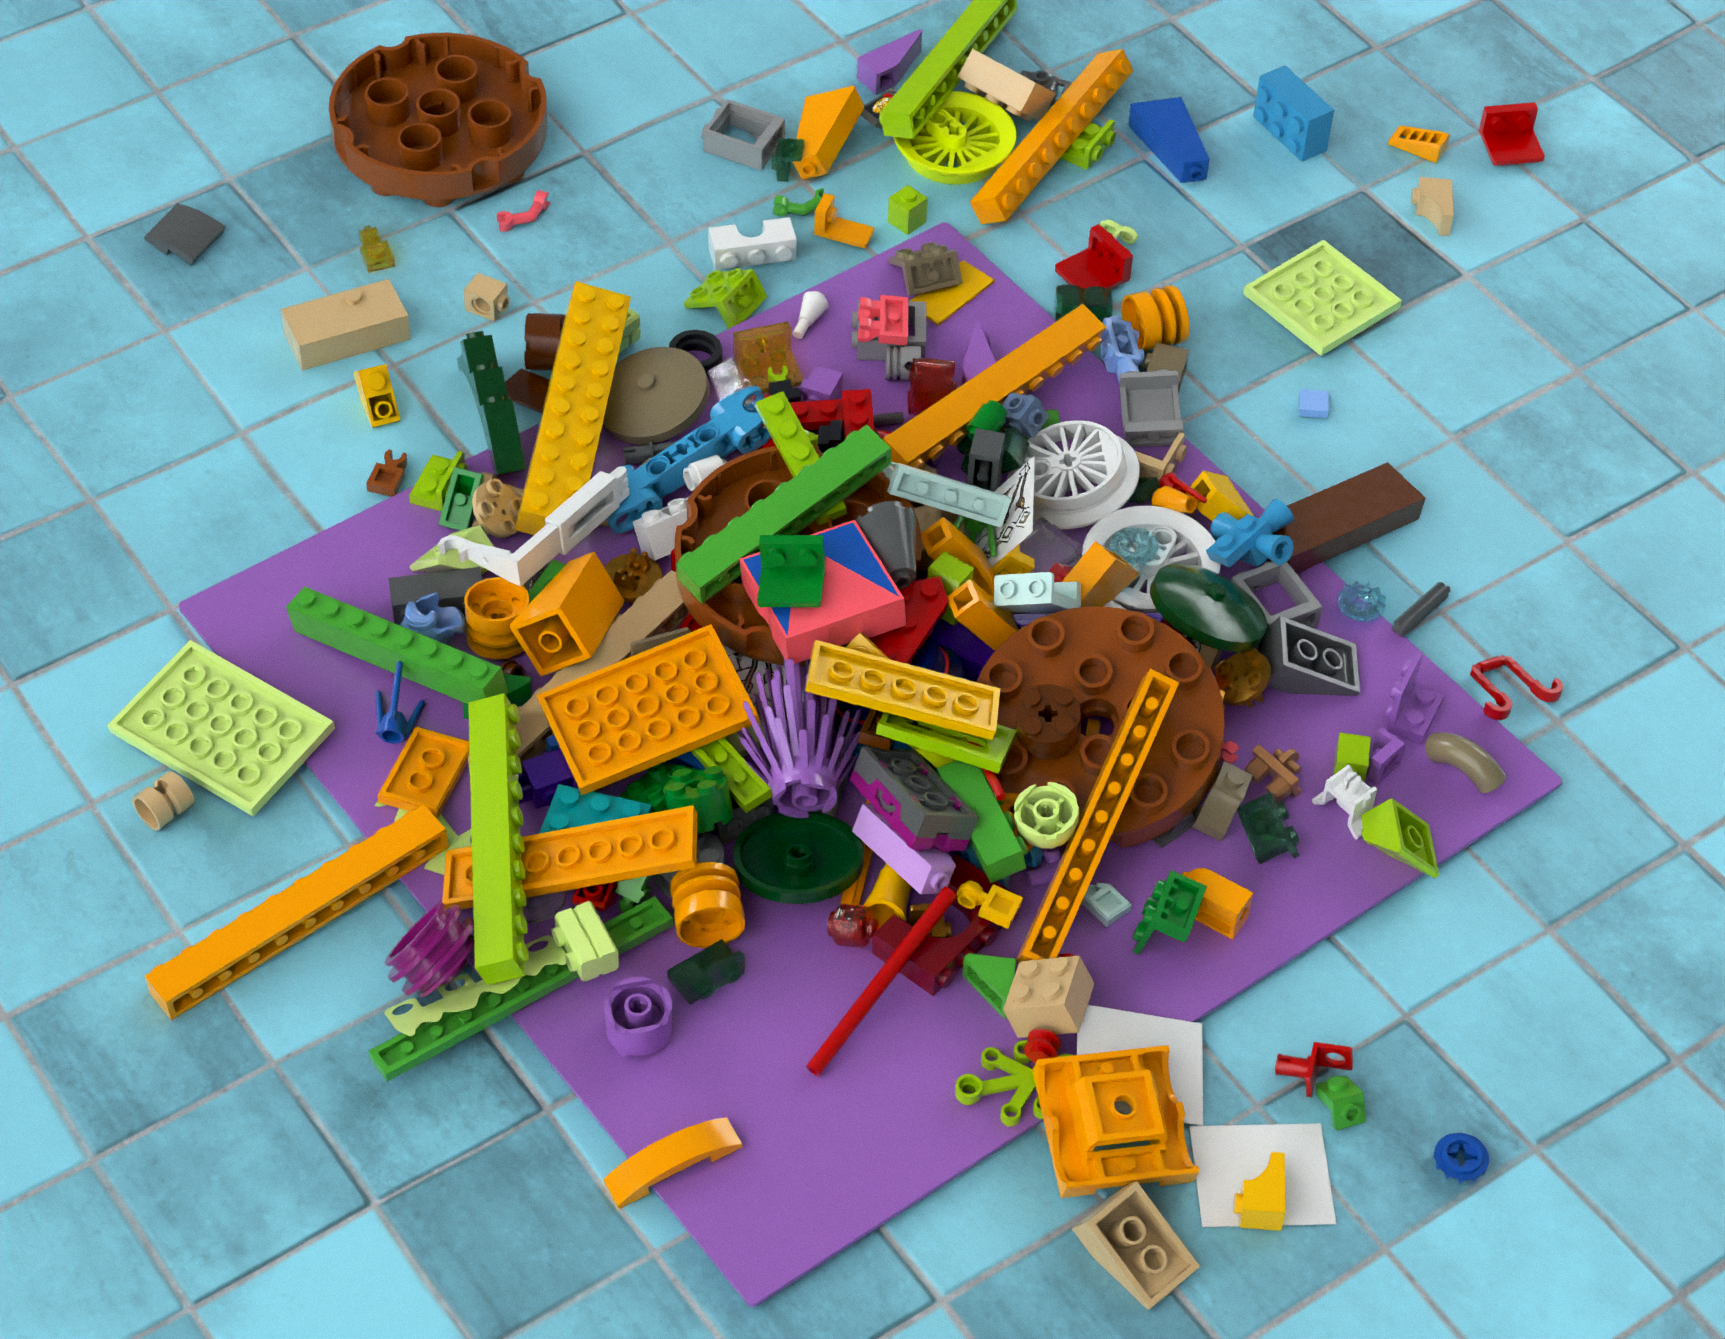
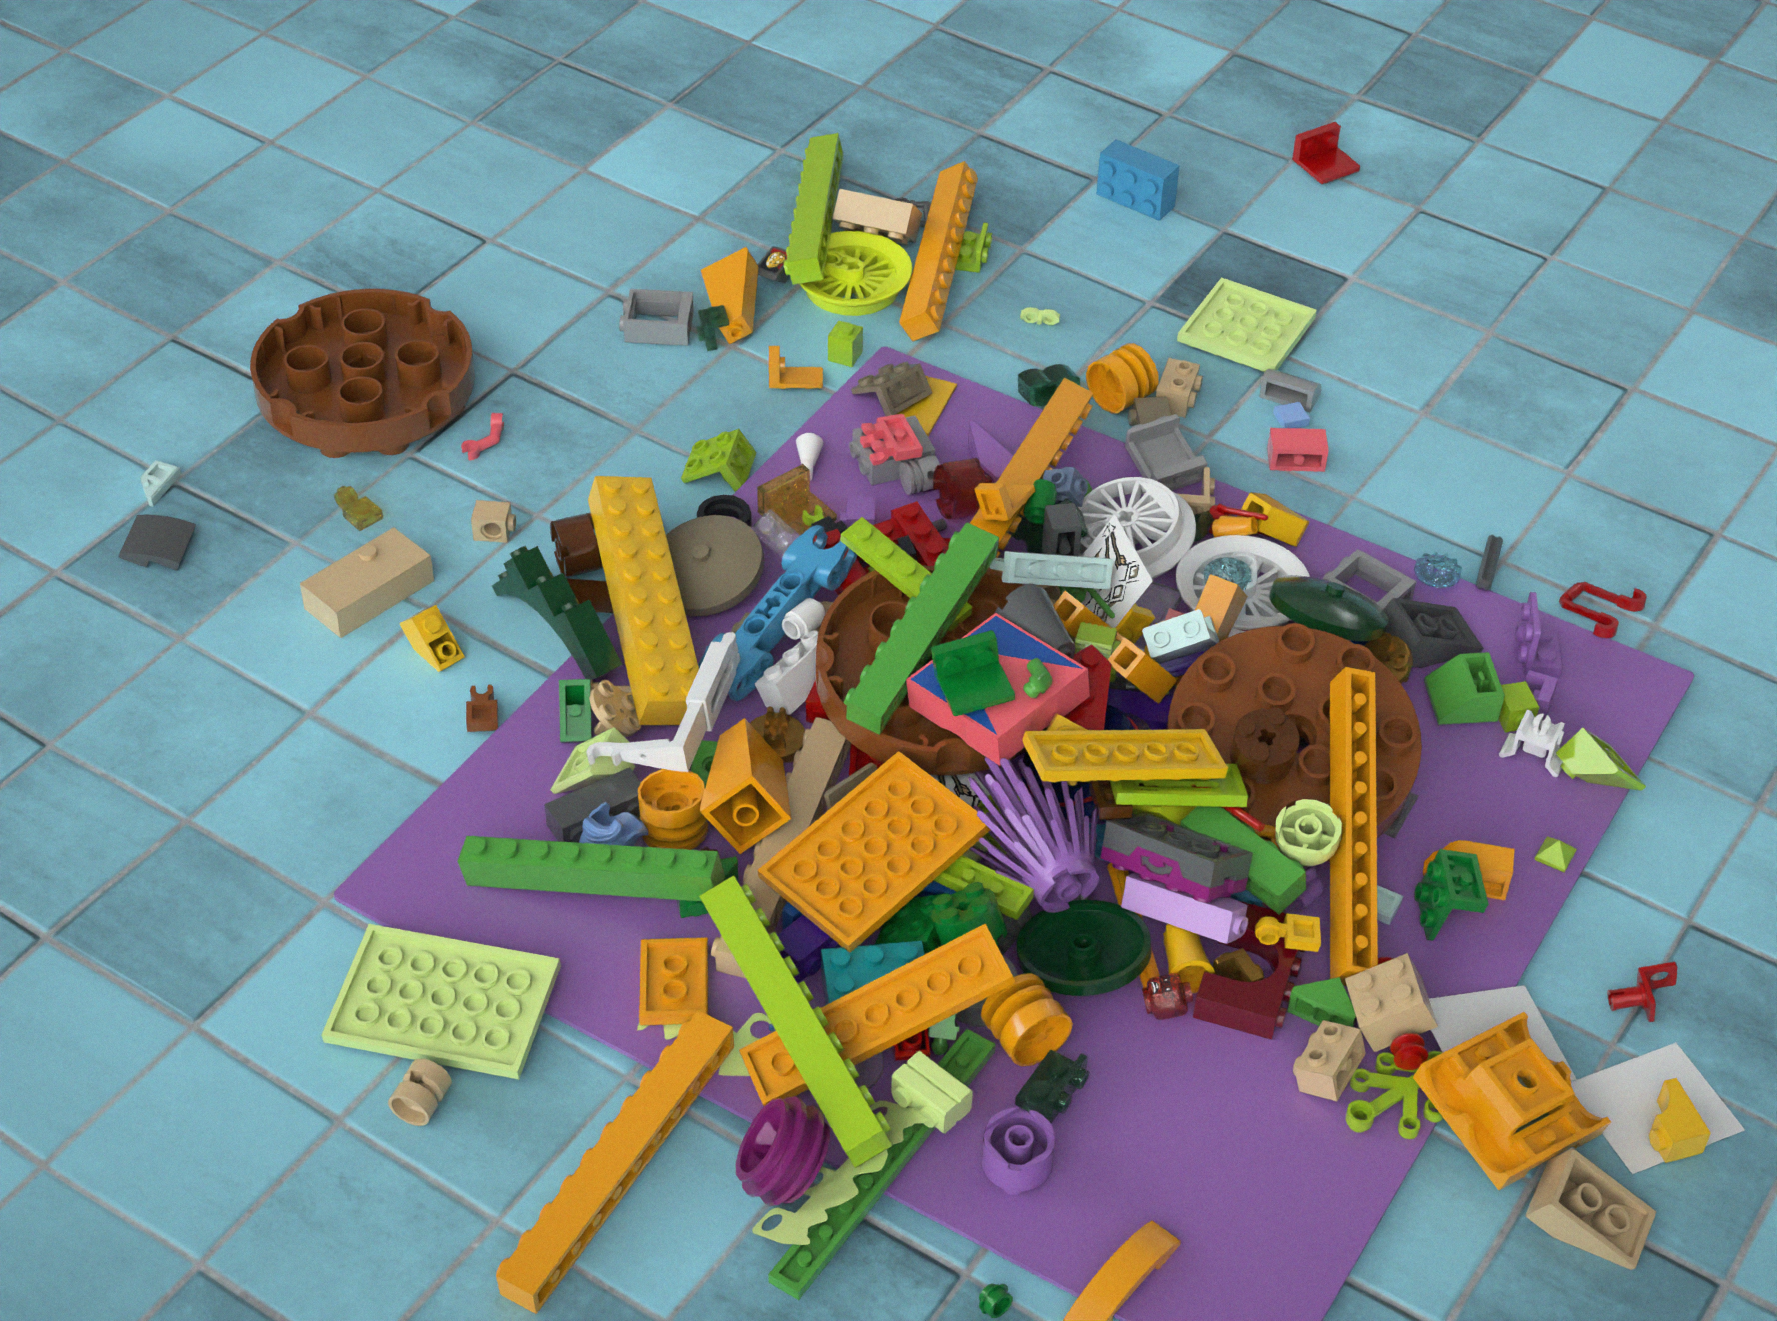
camera: 20 degrees left, 5 degrees down
(214, 174) = (158, 480): none -> light aqua tile
(393, 726) = (619, 945): blue plant -> none
(434, 481) = (538, 702): lime bracket -> none
(556, 1139) = (995, 1300): none -> green plate
(641, 453) = (727, 619): dark grey axle -> none
(734, 250) = (702, 419): white arch -> none
(796, 208) = (742, 369): bright green arm -> none
(850, 596) = (1040, 679): none -> bright green arm
(881, 981) = (1229, 1041): red piece -> none
(889, 63) = (754, 225): medium lavender slope -> none
(939, 418) = (1002, 503): none -> light orange bracket
(966, 1030) = (1329, 1060): none -> tan brick
(1101, 264) = (1041, 344): red bracket -> none
(1120, 347) = (1107, 415): light blue brick -> none
(1171, 136) = (1041, 226): blue slope -> none
(1212, 342) = (1179, 385): none -> tan brick
(1222, 800) = (1432, 778): dark tan arch -> none
(1252, 537) = (1325, 538): dark azure brick -> none
(1267, 828) = (1480, 790): clear green bracket -> none
(1283, 780) = (1460, 734): medium nougat hips -> none
(1295, 439) = (1297, 449): none -> coral brick
(1307, 912) = (1555, 854): none -> lime slope
(1309, 726) = (1465, 690): none -> bright green slope
(1326, 375) = (1289, 389): none -> light grey brick
(1343, 1100) = (1686, 1011): bright green bracket -> none
(1350, 515) = (1376, 505): reddish brown brick -> none
(1424, 142) = (1250, 179): light orange slope -> none
(1435, 202) = (1295, 223): tan arch -> none
(1467, 757) = (1613, 674): dark tan cylinder -> none

